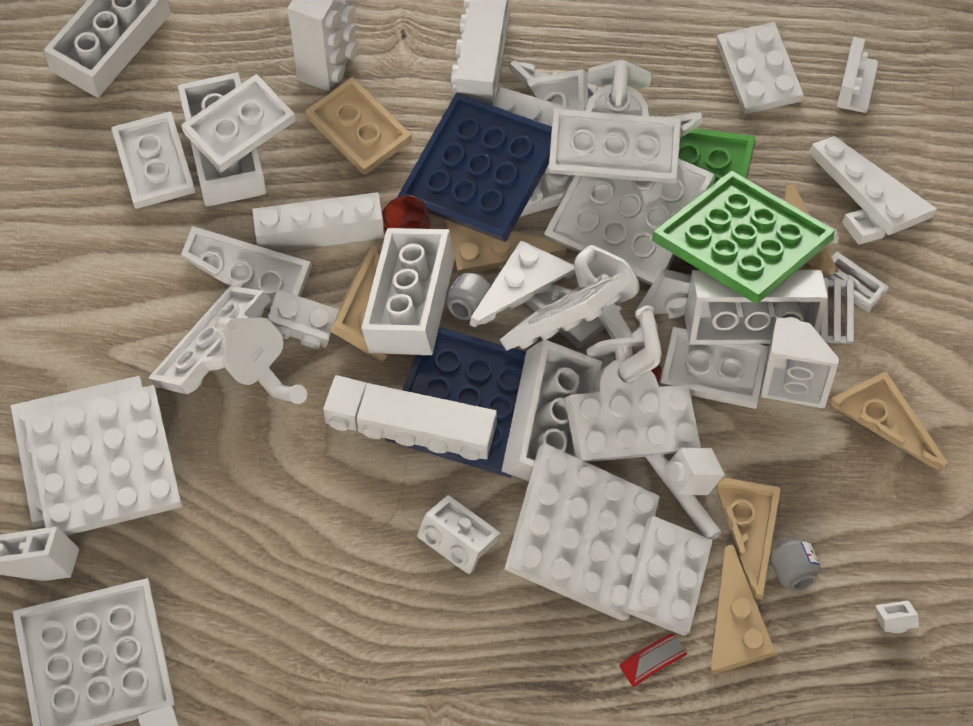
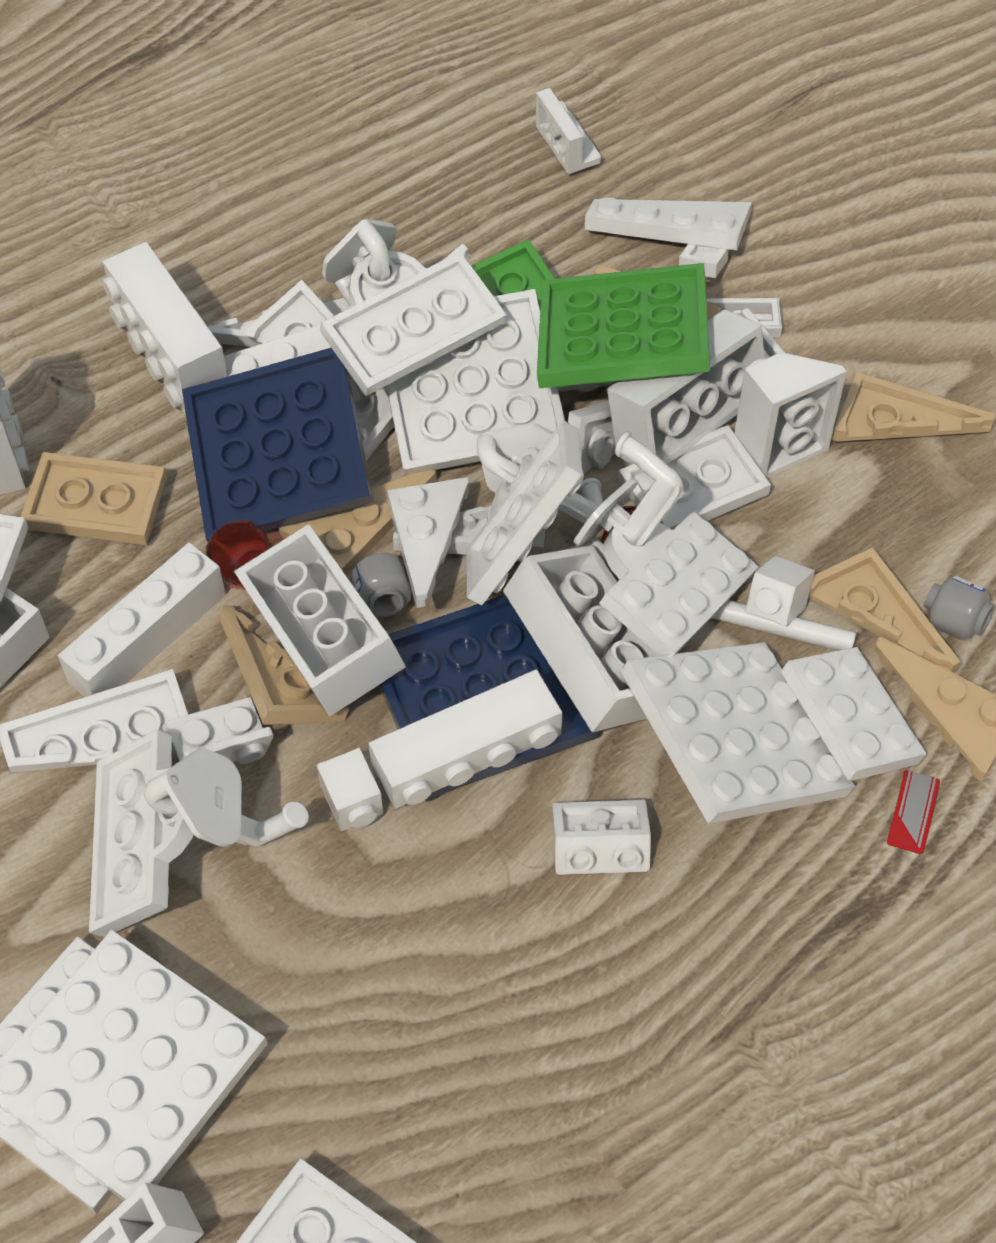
camera: 40 degrees left, 5 degrees down
(759, 68) = (461, 185): white plate -> none

